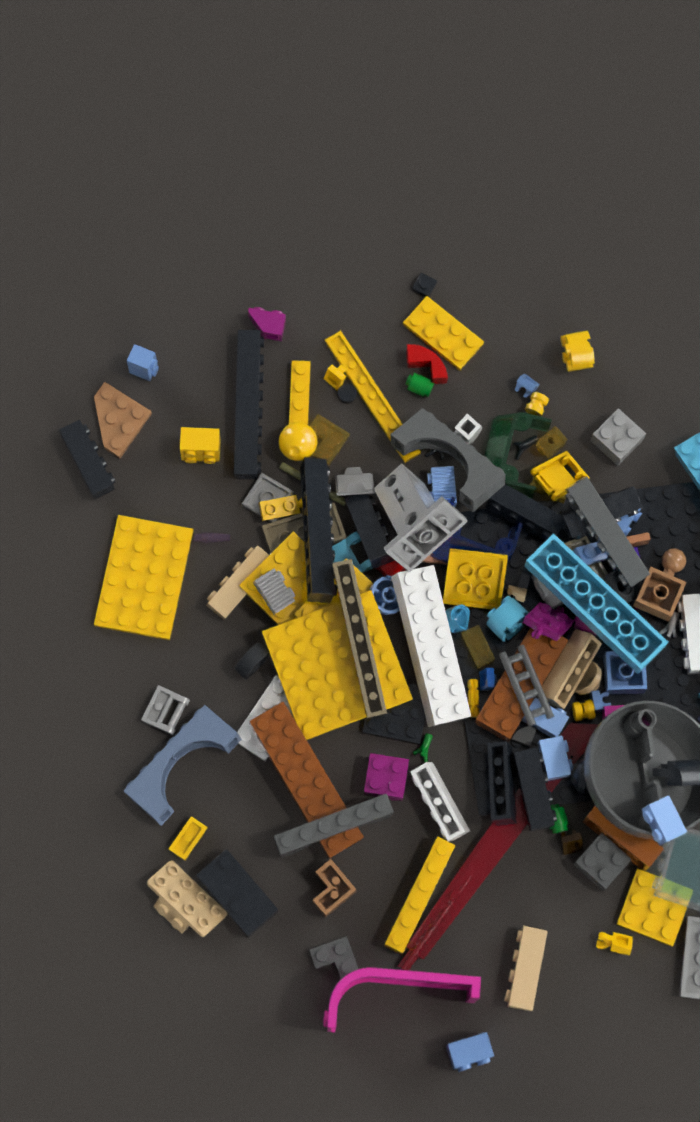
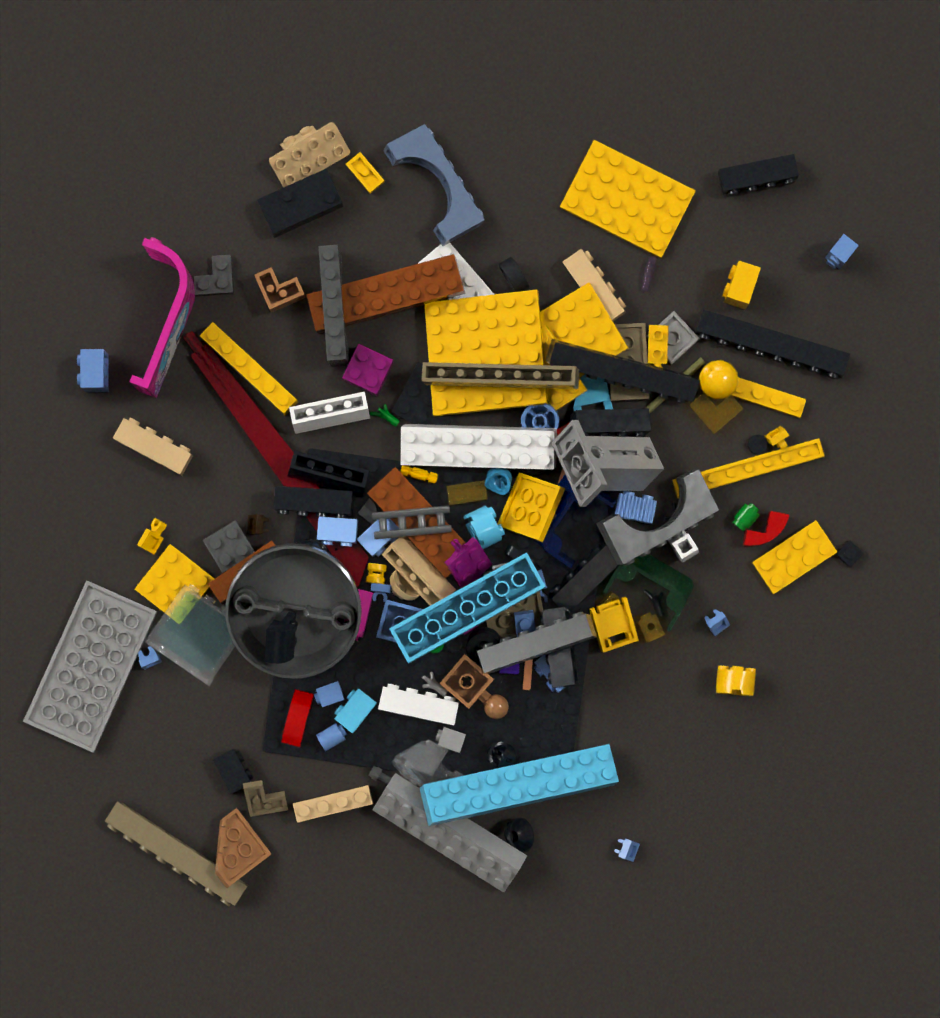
camera: 110 degrees right, 10 degrees up
(118, 419) = (793, 216): medium nougat plate -> none
(159, 708) = (495, 179): light grey plate -> none
(269, 323) = (849, 387): magenta slope -> none
(274, 591) = (572, 311): light grey brick -> none
(354, 482) = (662, 423): light grey piece -> none
(487, 679) = (432, 492): blue plate -> none
(520, 593) = (505, 544): tan tile -> none
(537, 403) = (693, 625): yellow wheel -> none
(561, 823) = (282, 521): green brick -> none
(618, 436) = (637, 694): light grey brick -> none
(663, 820) = (238, 601): light blue brick -> none

